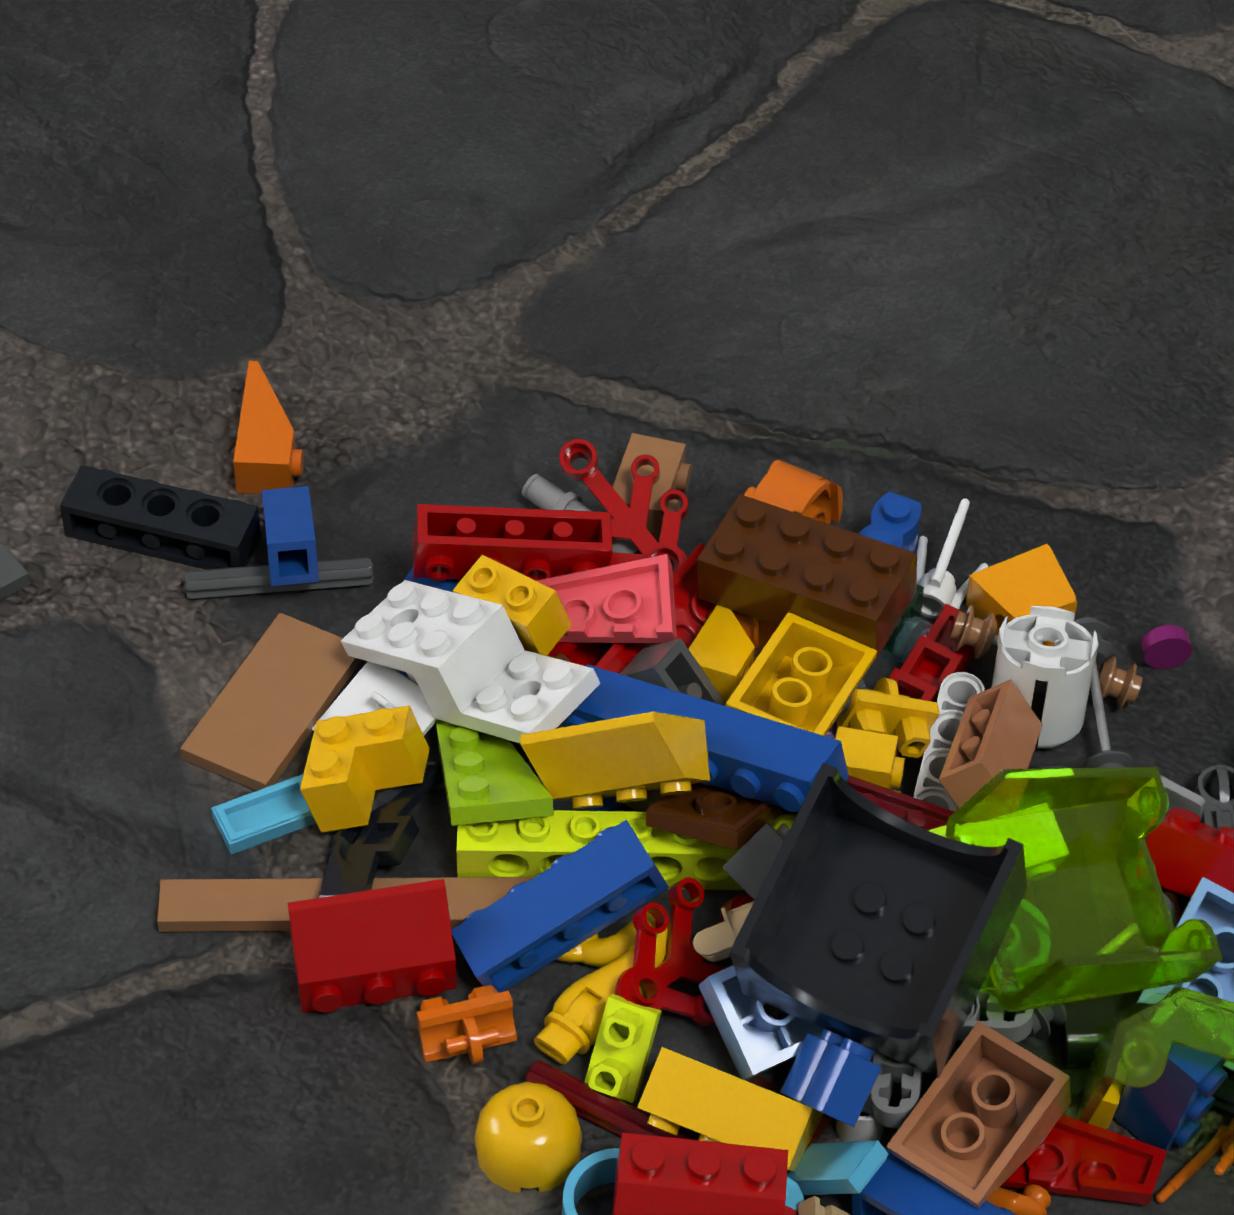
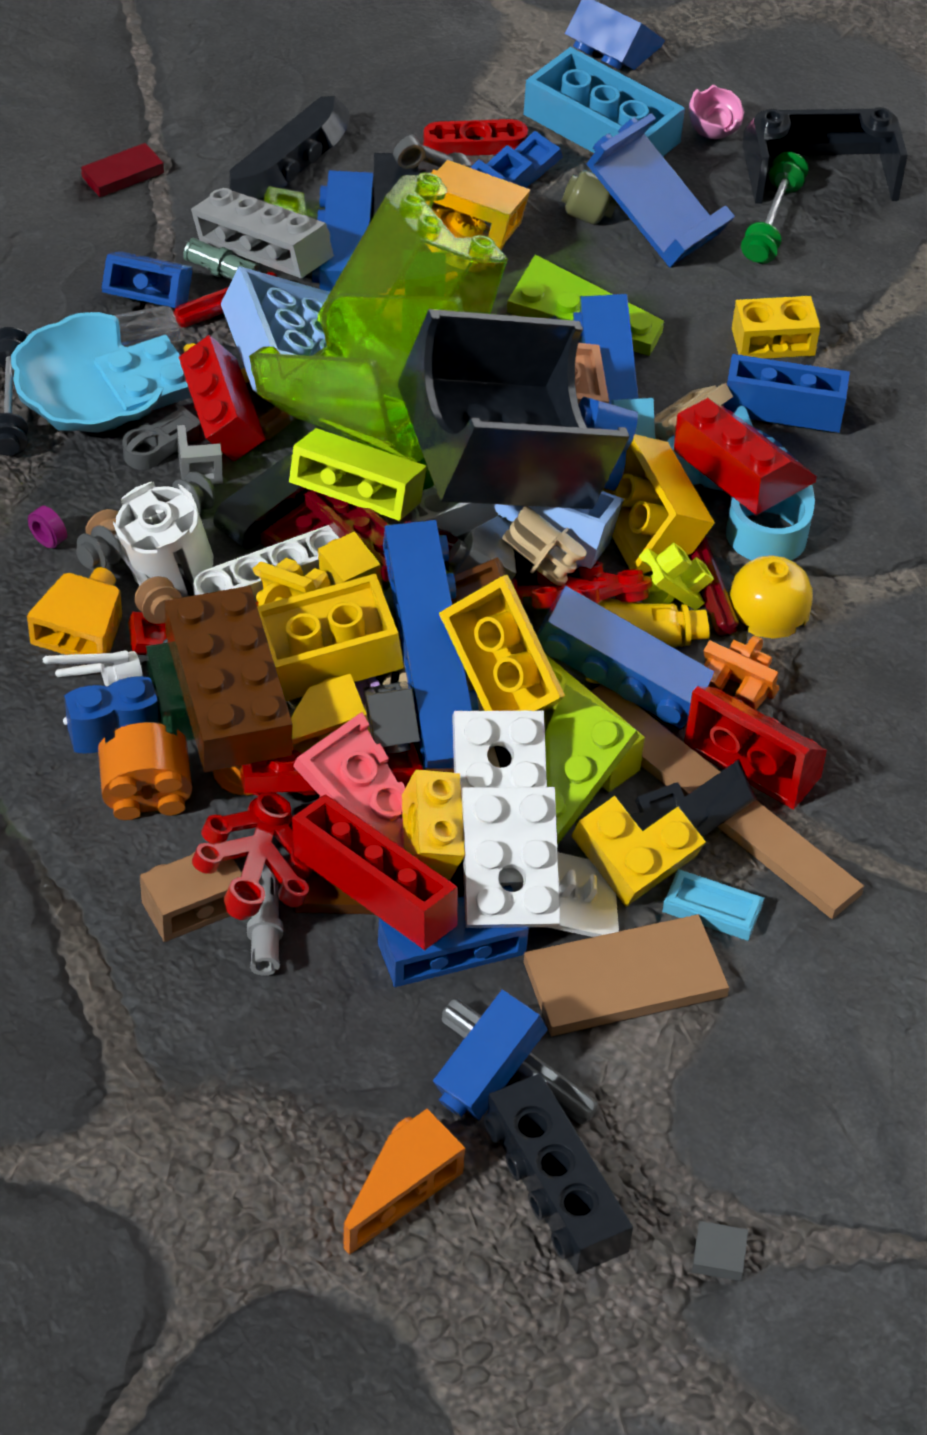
camera: 135 degrees left, 0 degrees up
(993, 735) = (269, 513): nougat brick -> none

